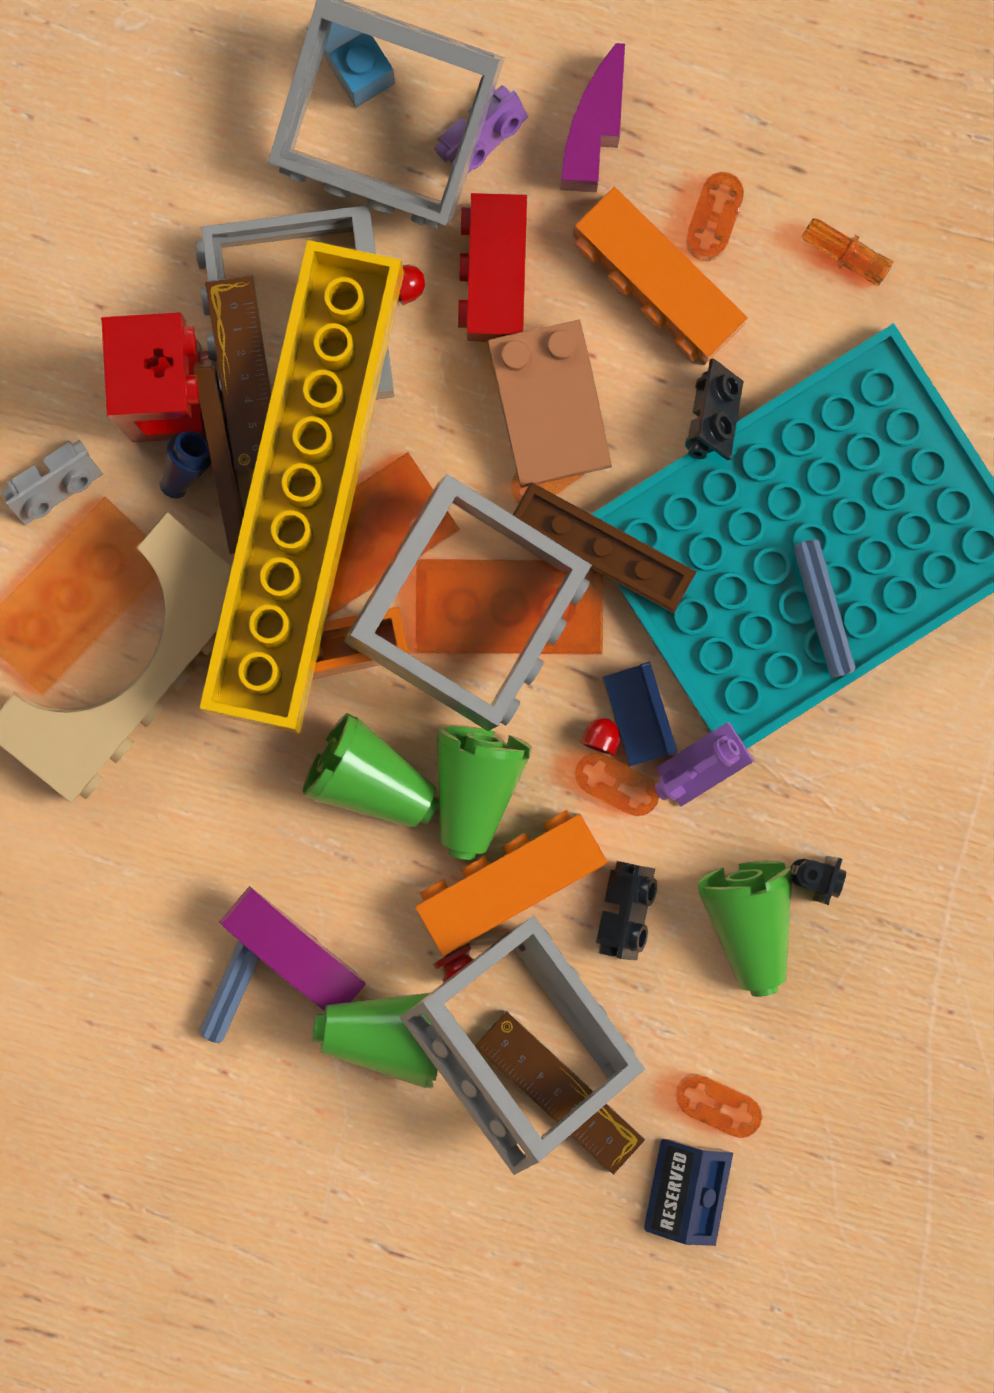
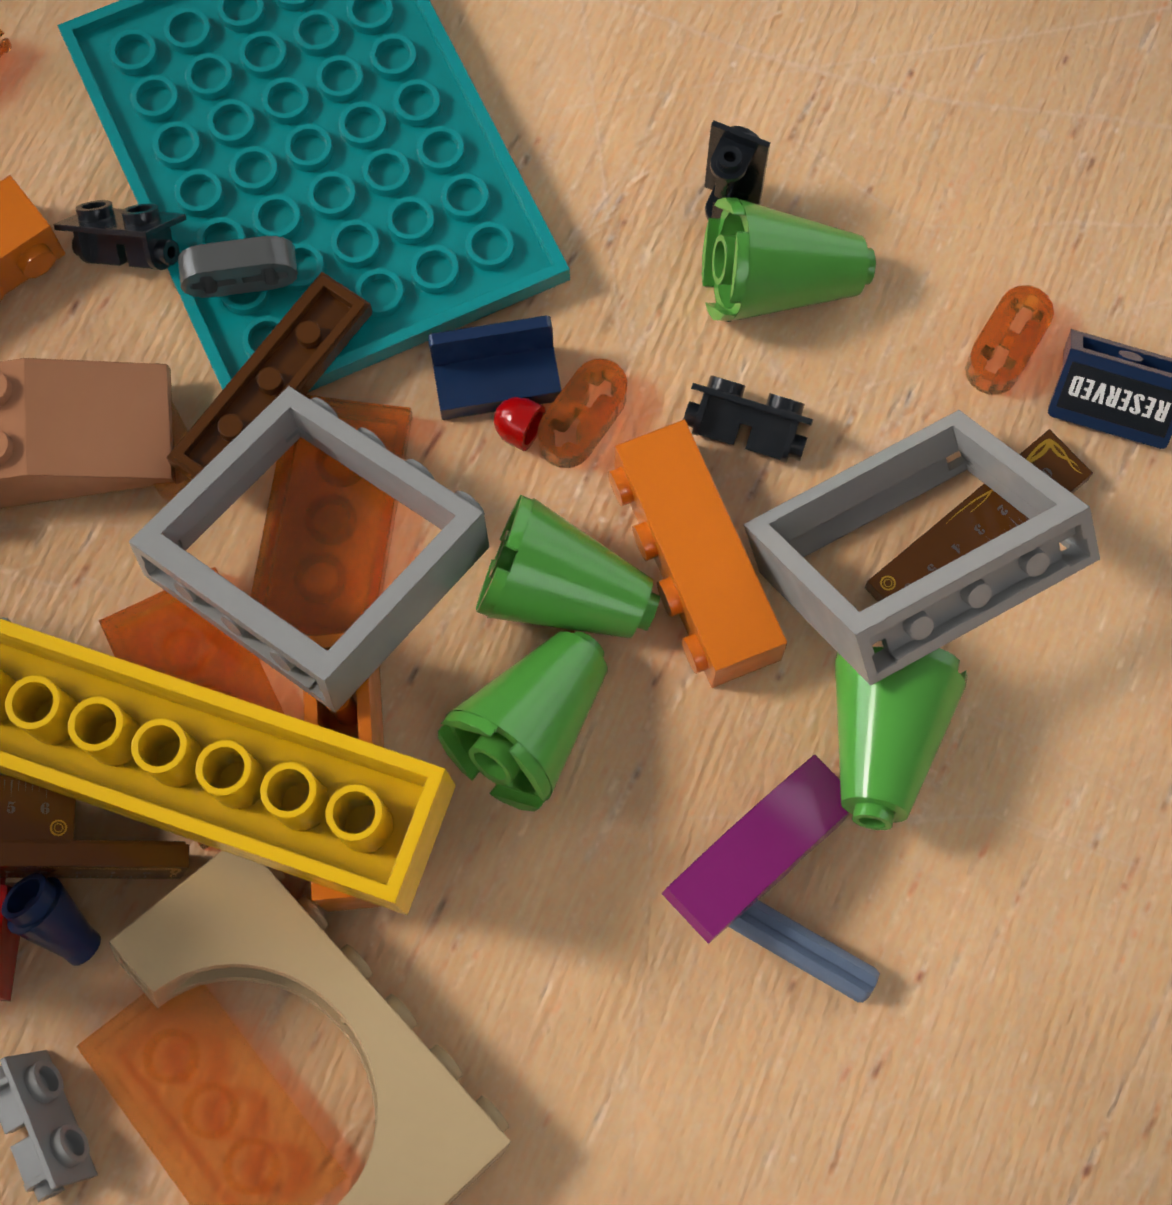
camera: 80 degrees left, 15 degrees down
(454, 961) = (801, 639): red bush -> none
(690, 507) = (237, 266): none -> dark grey beam
(702, 765) = (571, 298): medium lavender hinge -> none
(824, 608) = (393, 133): sand blue axle -> none

